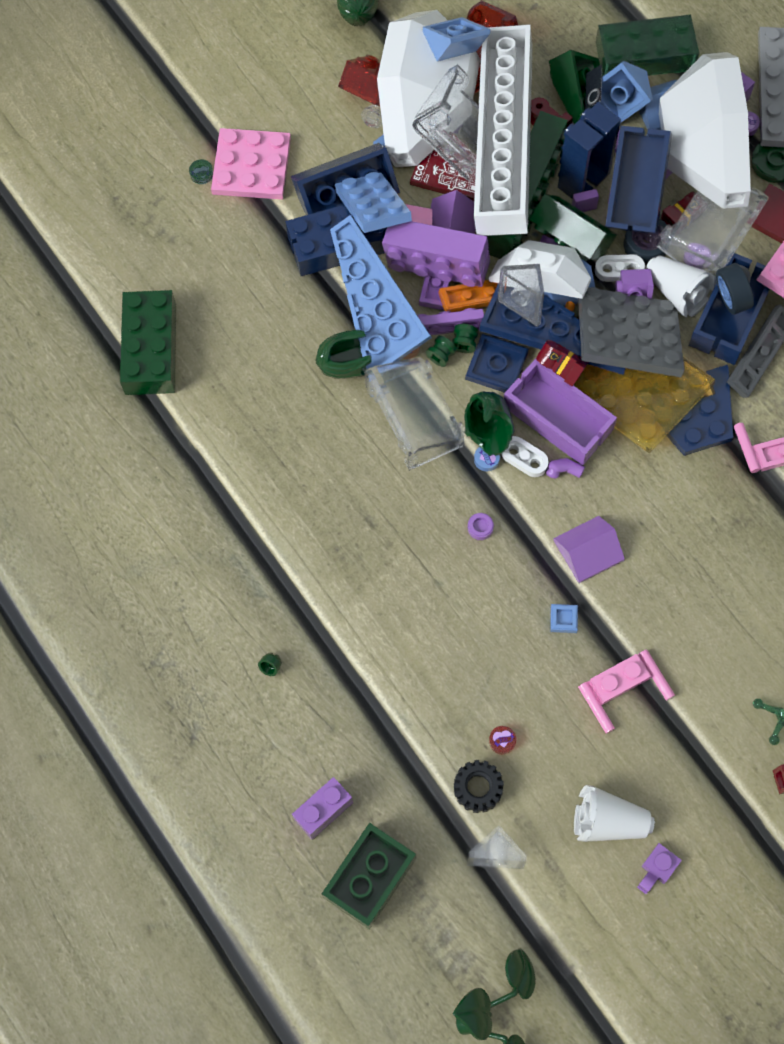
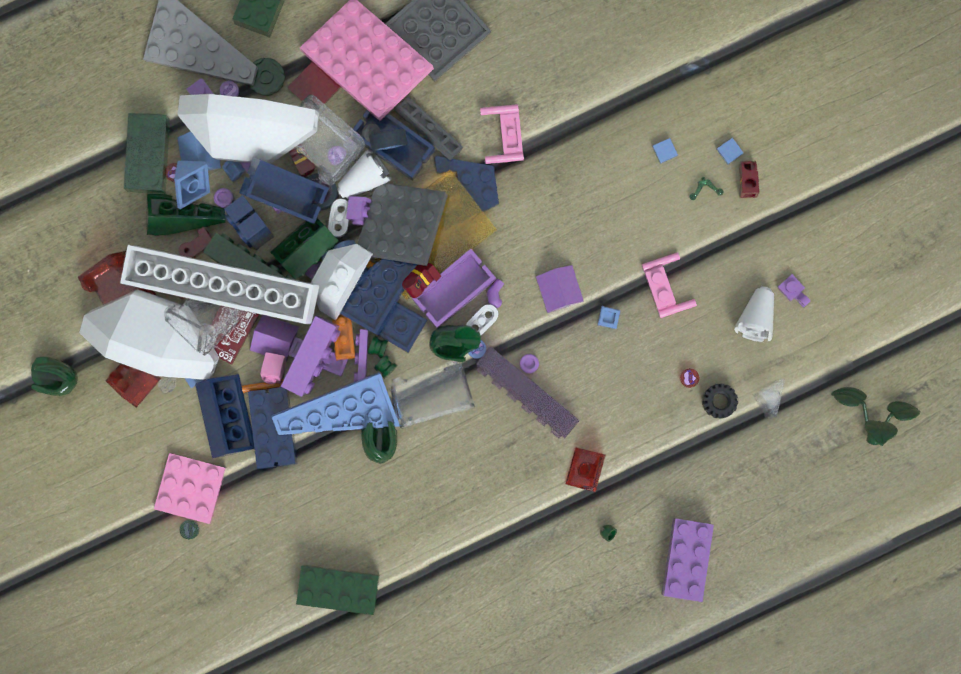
camera: 85 degrees left, 15 degrees up
(247, 775) = (687, 560): none -> medium lavender brick
(322, 808) = (719, 511): medium lavender brick -> none
(350, 621) = (585, 469): none -> clear red slope
(369, 875) = (771, 486): dark green brick -> none
(373, 202) = (260, 397): medium blue plate -> none
(440, 527) = (526, 392): none -> clear purple brick
(455, 37) = (128, 307): medium blue slope -> none
(522, 290) = (360, 296): clear slope -> none
(586, 200) = (277, 232): medium lavender tile -> none
(593, 86) = (182, 204): black sticker -> none

